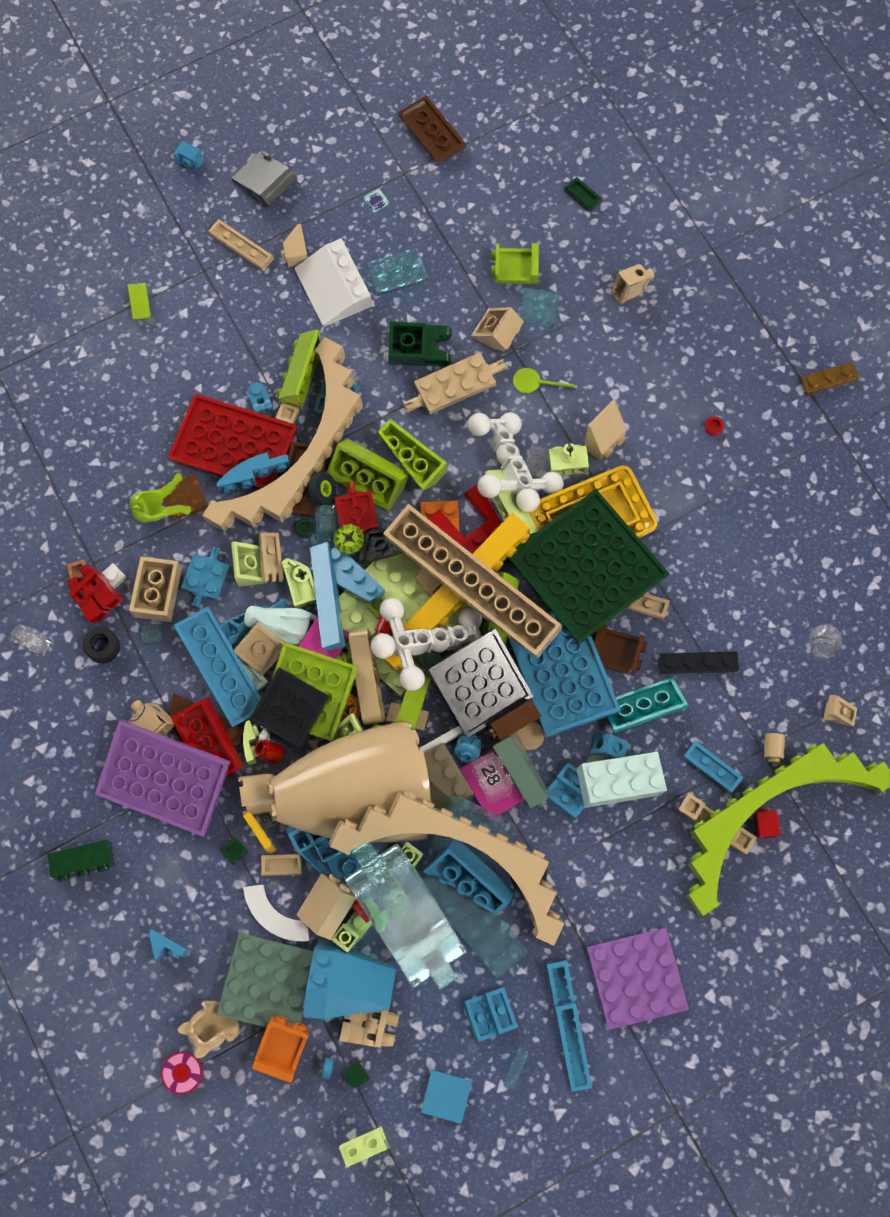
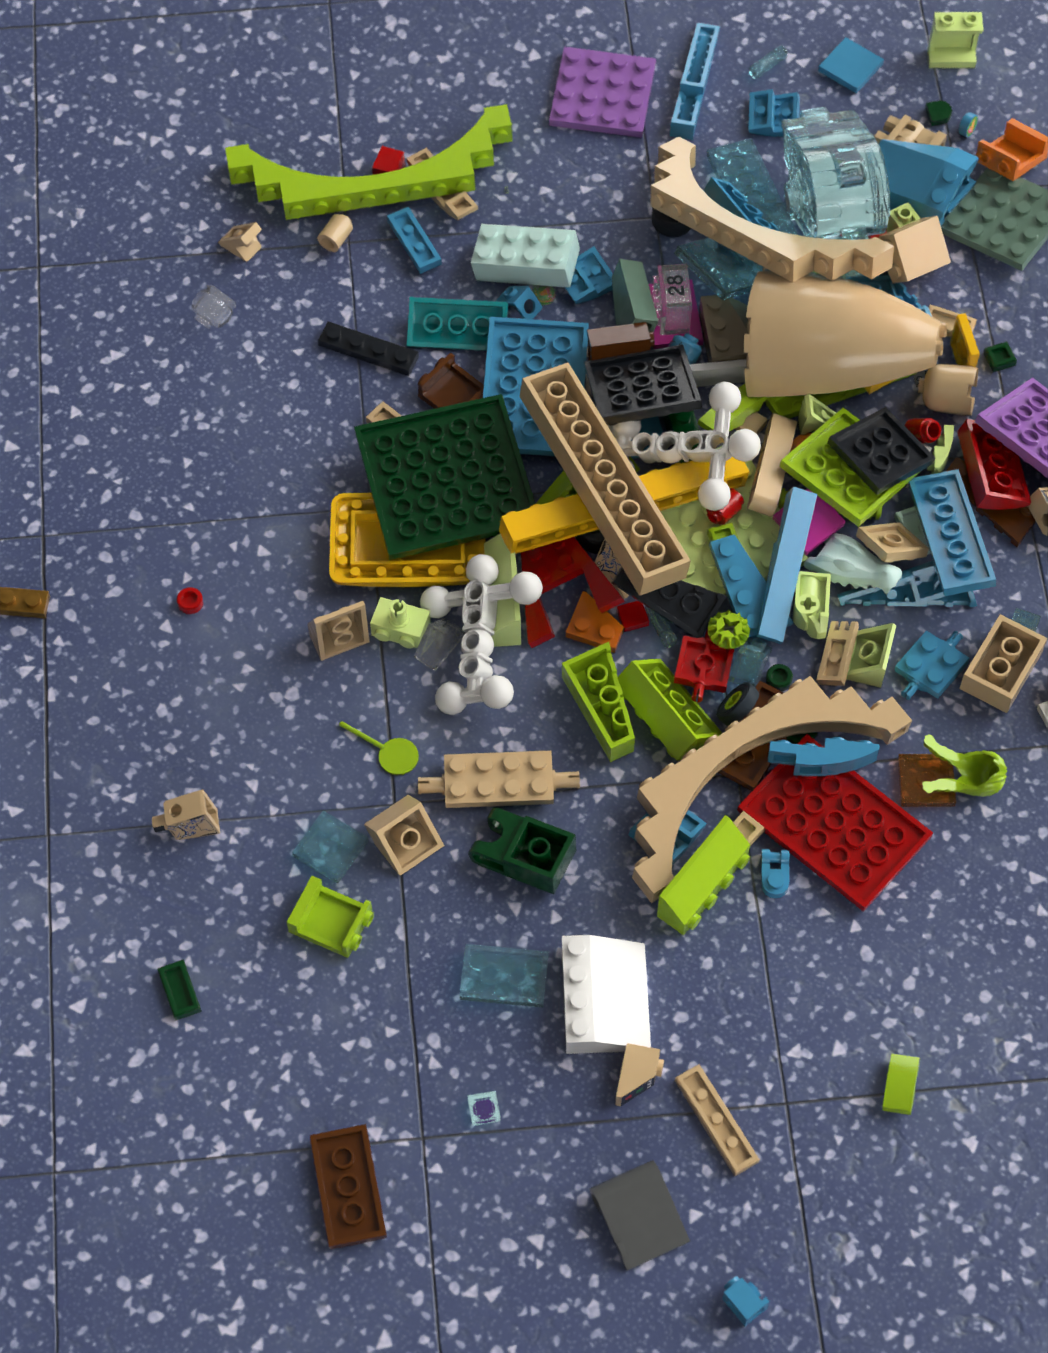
camera: 160 degrees left, 10 degrees down
(272, 920) = (981, 276): white tile -> none

